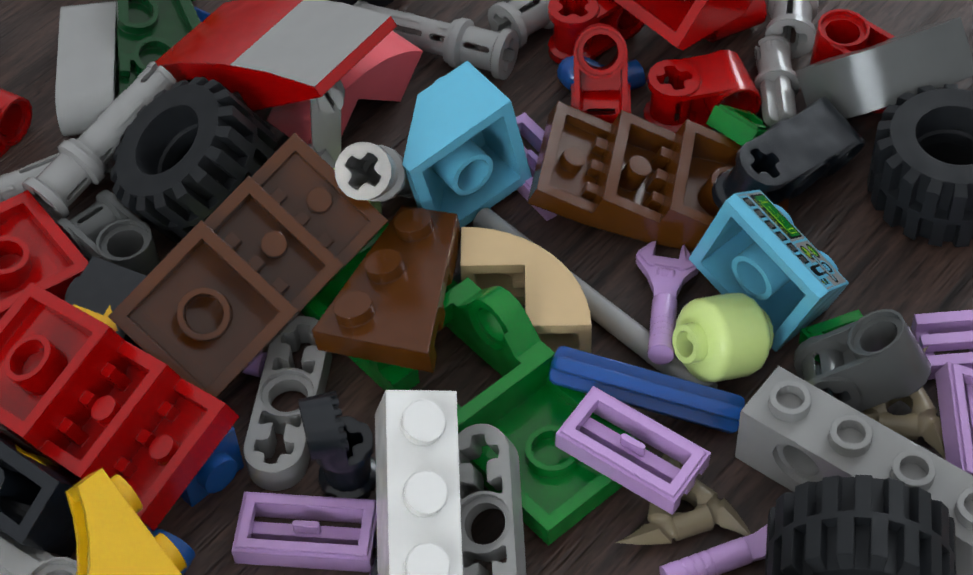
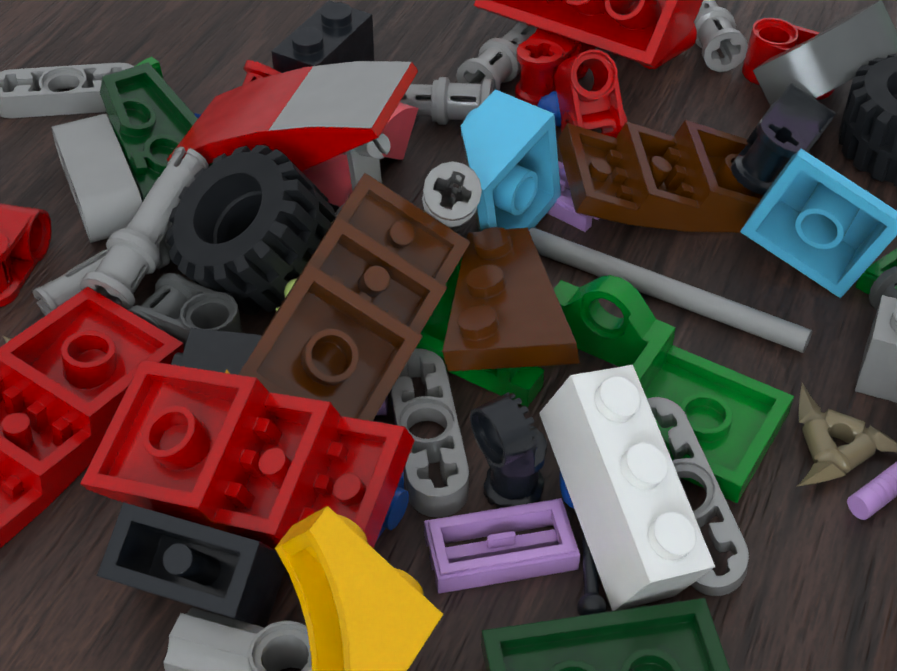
camera: 20 degrees left, 5 degrees down
(535, 279) = (586, 259): tan brick -> none
(626, 458) = (782, 404): lavender tile -> none
(647, 389) = (762, 344): blue axle -> none
(666, 279) = (724, 256): lavender piece -> none
(698, 86) = (677, 95): red piece -> none
(722, 337) = (807, 287): yellowish green head -> none
(736, 123) = (726, 120): green tile -> none
(776, 79) = (731, 88): light grey axle -> none

